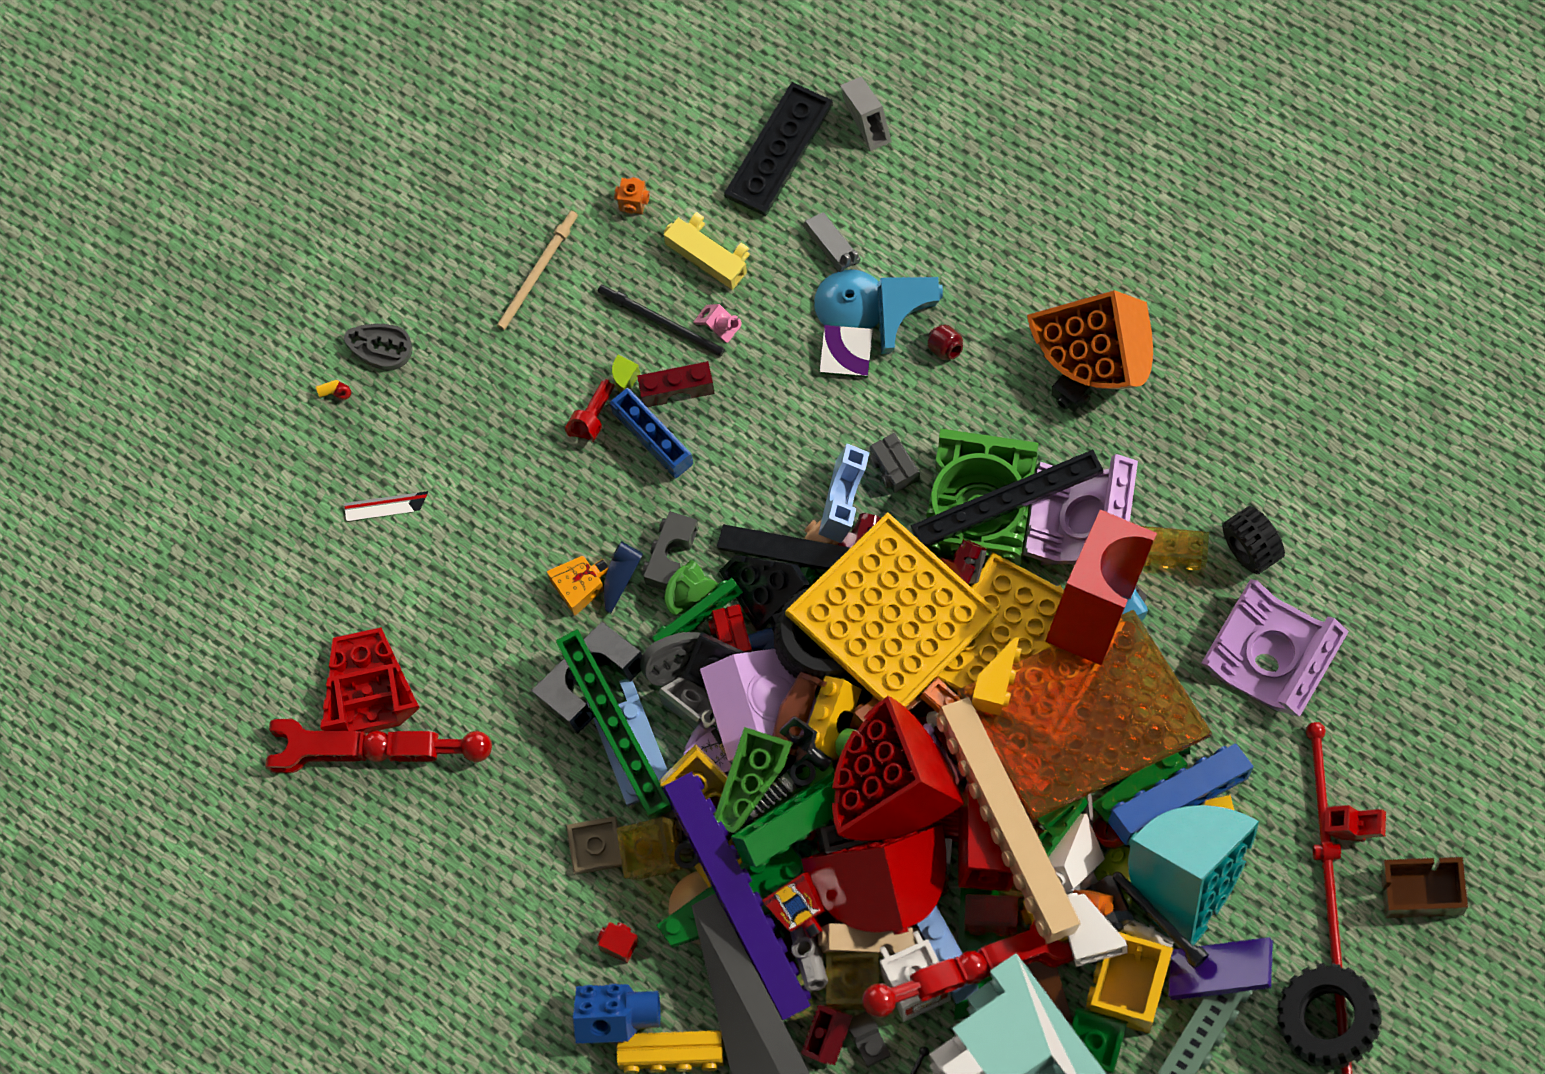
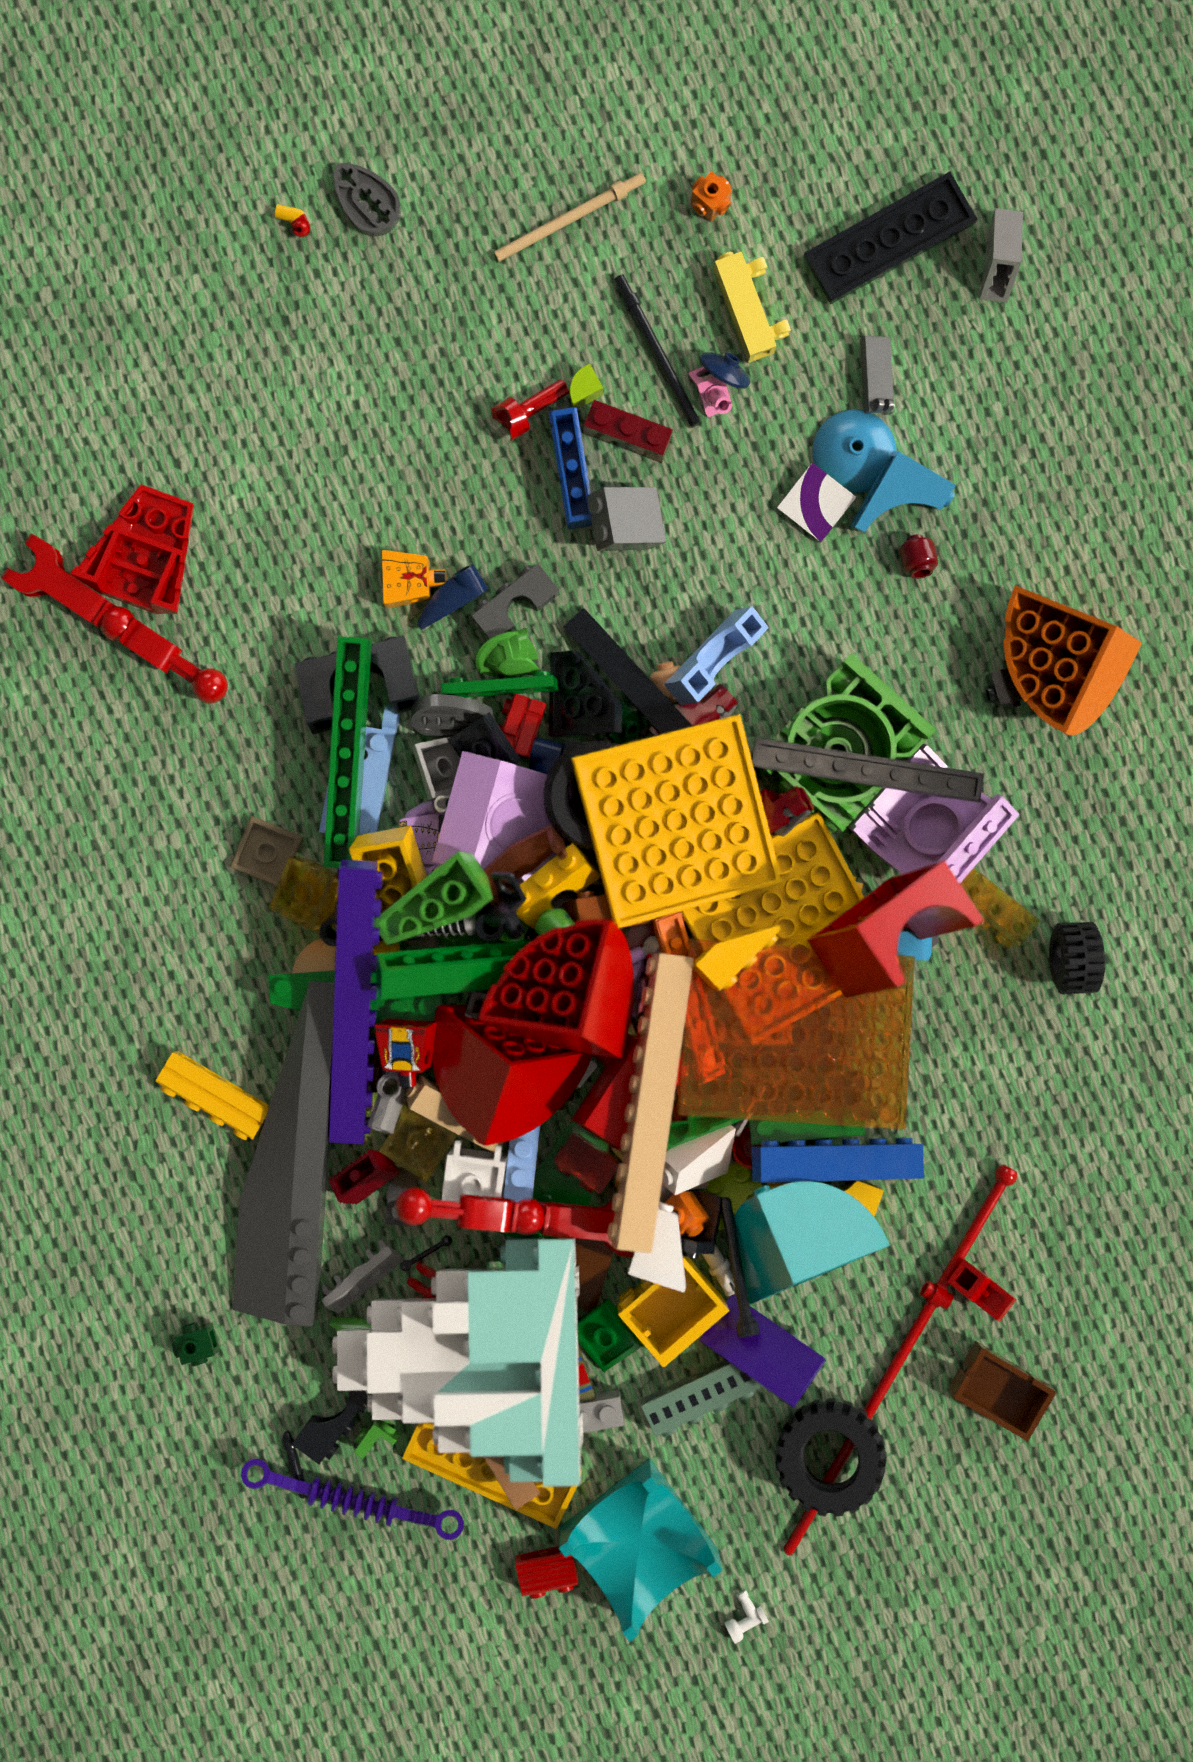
camera: 25 degrees right, 20 degrees up
(384, 506) = (272, 376): sticker -> none
(613, 1012) = (179, 1031): blue brick -> none
(617, 941) = (229, 960): red brick -> none
(714, 441) = (626, 518): none -> brick
(719, 298) = (725, 369): none -> dark blue dish
(893, 463) = (787, 651): dark grey brick -> none
(1274, 628) = (1050, 1080): lavender panel -> none

